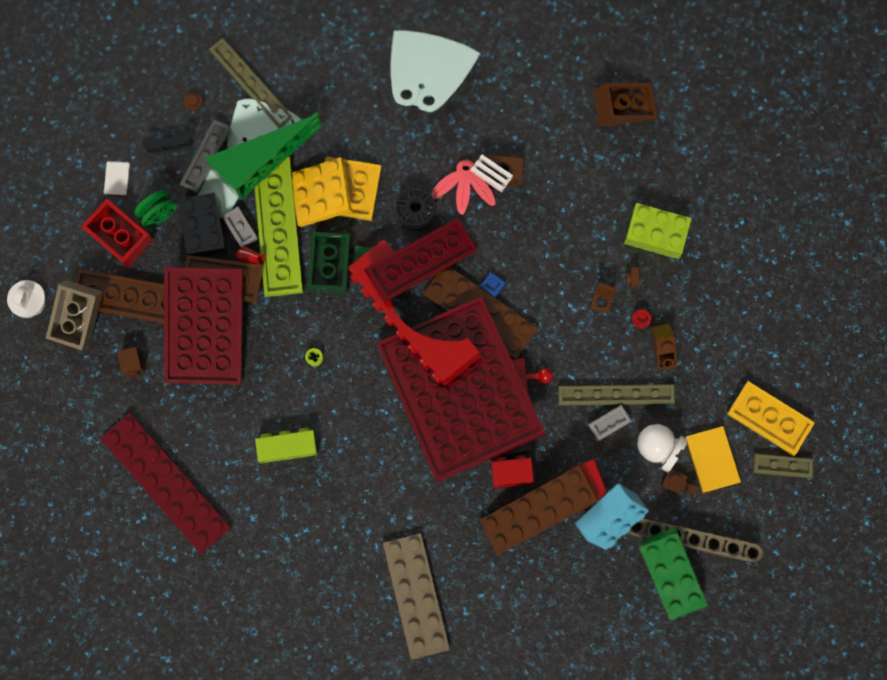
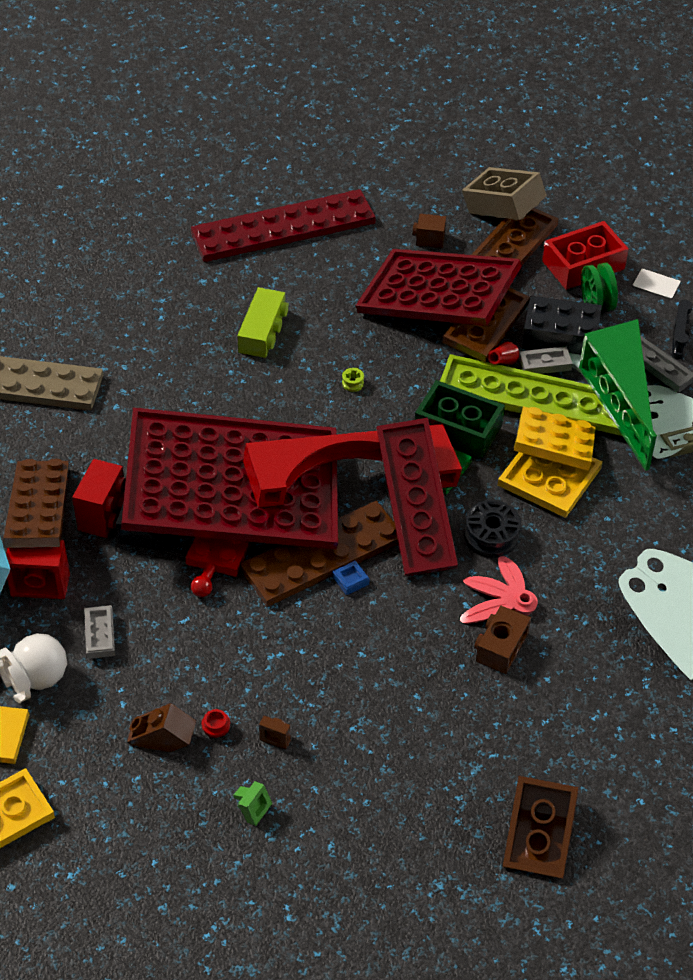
camera: 110 degrees right, 30 degrees down
(26, 299) = (551, 174): white tile -> none
(500, 170) = (497, 607): white tile -> none
(603, 290) = (274, 691): reddish brown bracket -> none
(616, 395) = (130, 659): olive tile -> none
(657, 231) = (327, 787): lime brick -> none
(686, 270) = (253, 802): none -> bright green tile

